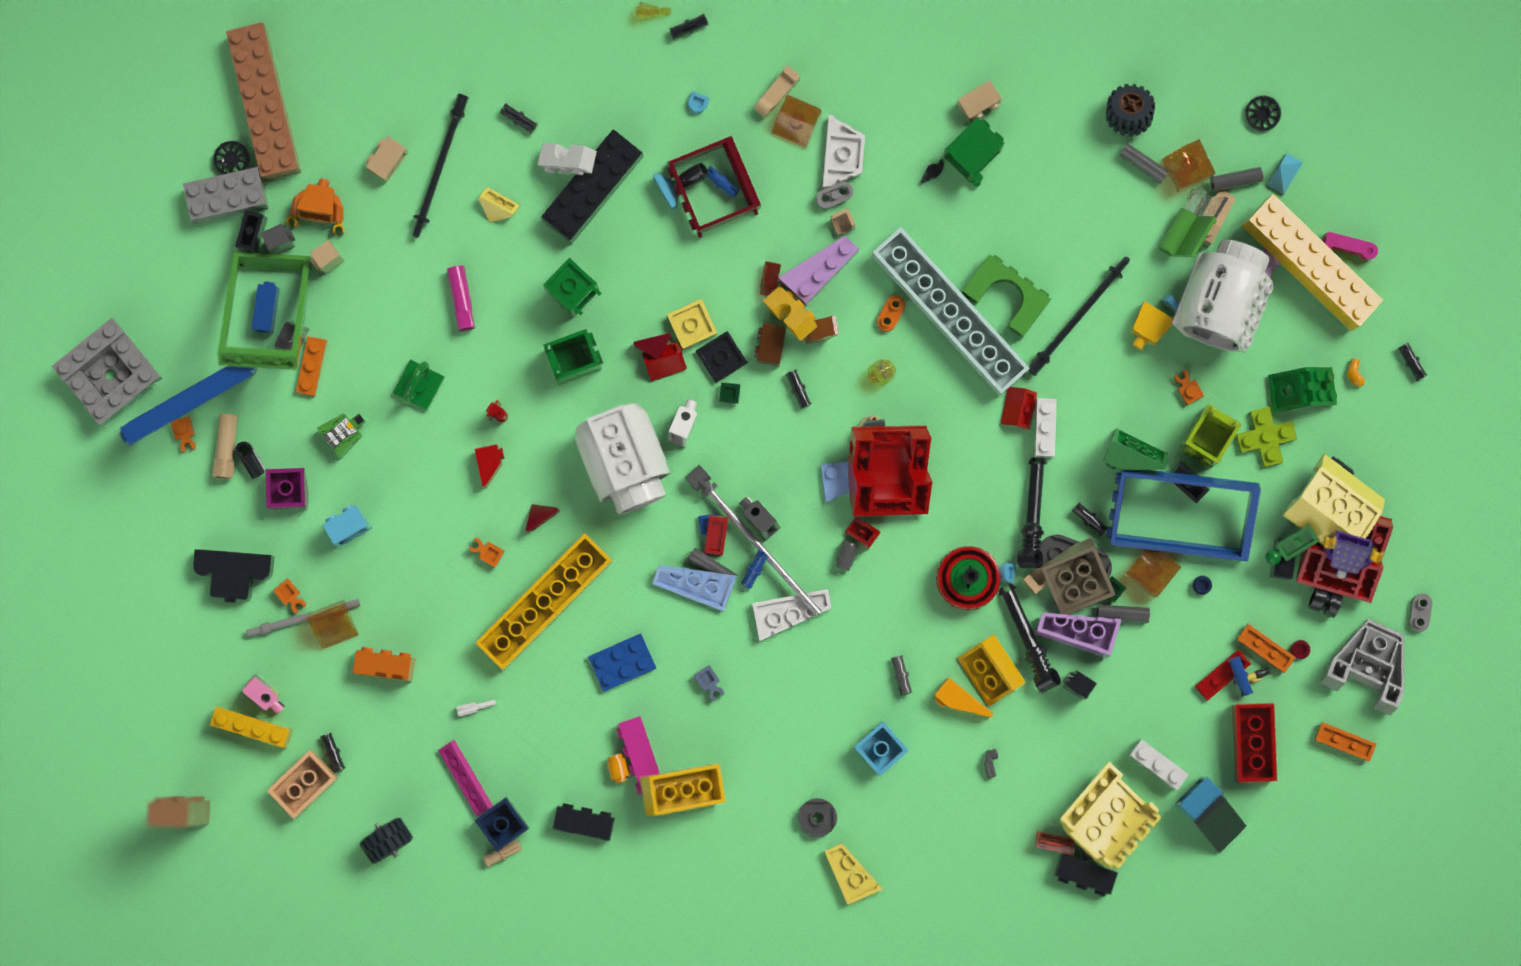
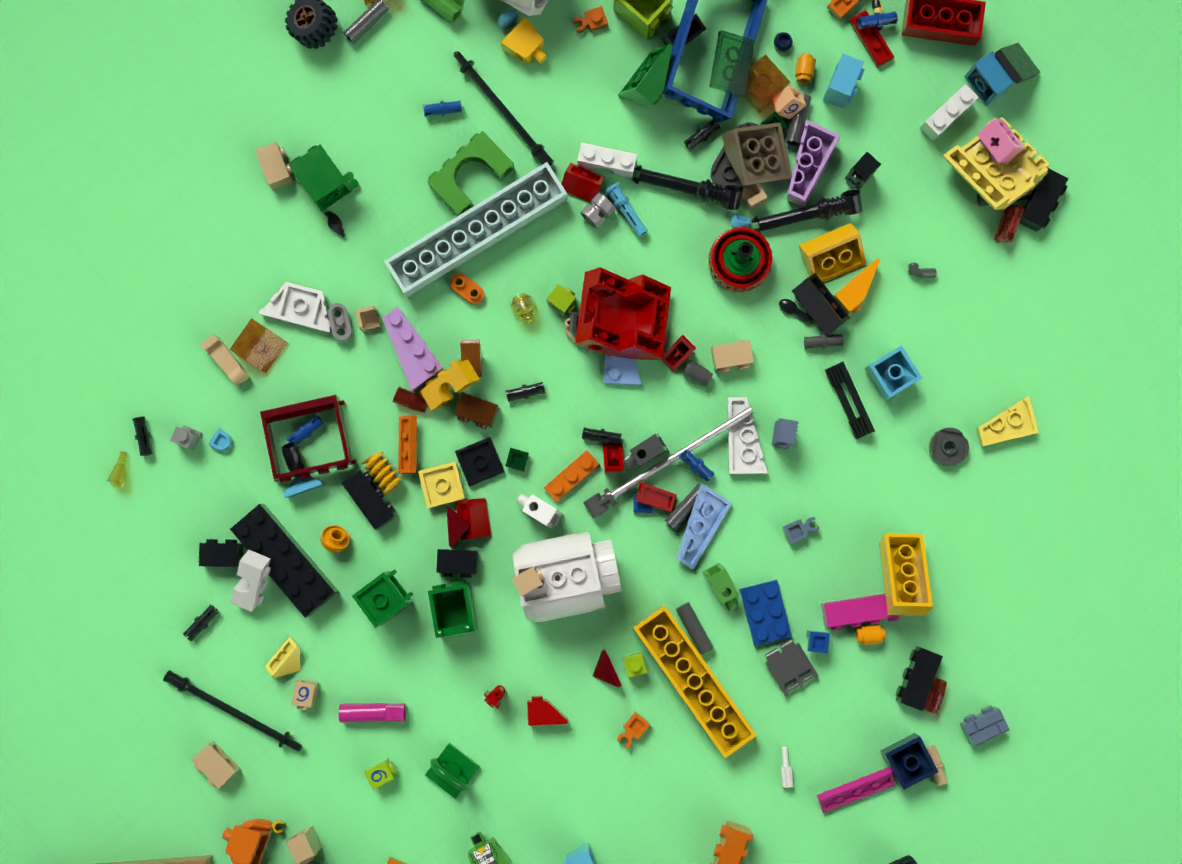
camera: 80 degrees left, 0 degrees up
(404, 317) = (381, 773): none -> lime brick
(467, 230) = (304, 694): none -> tan brick
(549, 542) = (634, 664): none -> lime brick
(549, 894) = (984, 725): none -> sand blue brick
(574, 694) = (789, 666): none -> dark grey plate
(575, 841) = (935, 696): none -> clear red hinge
(587, 124) = (220, 554): none -> black brick
(595, 595) = (694, 628): none -> dark grey piece
(602, 716) = (818, 641): none -> blue panel
(611, 420) = (528, 580): none -> tan brick
(619, 352) = (456, 561): none -> black brick
(621, 230) = (335, 539): none -> light orange plate
(645, 608) = (718, 580): none -> bright green torso
(665, 257) = (369, 499): none -> black brick
(694, 264) = (383, 472): none -> yellow piece
(695, 68) = (186, 437): none -> light grey brick
(723, 449) = (571, 476): none -> orange plate
(725, 283) = (407, 444): none -> orange plate
(748, 486) = (613, 458): none -> red slope
(767, 471) = (615, 438): none -> black pin
(800, 649) = (784, 433): none -> sand blue brick
(823, 725) = (862, 425): none -> black container
(870, 586) = (732, 356): none -> tan brick
(896, 409) = (562, 299): none -> lime brick
(930, 637) = (790, 307): none -> black piece
(937, 665) = (820, 304): none -> black brick
(991, 428) = (598, 210): none -> light grey wheel
(1006, 450) = (621, 202): none -> medium azure pin
(1068, 255) = (442, 108): none -> blue pin
(1134, 817) = (1000, 141): none -> bright pink brick
(1137, 600) = (789, 102): none -> light nougat brick
(1164, 534) = (732, 63): none -> clear green tile
(1170, 650) = (842, 84): none -> medium azure slope
(1177, 611) = (805, 68): none -> light orange brick

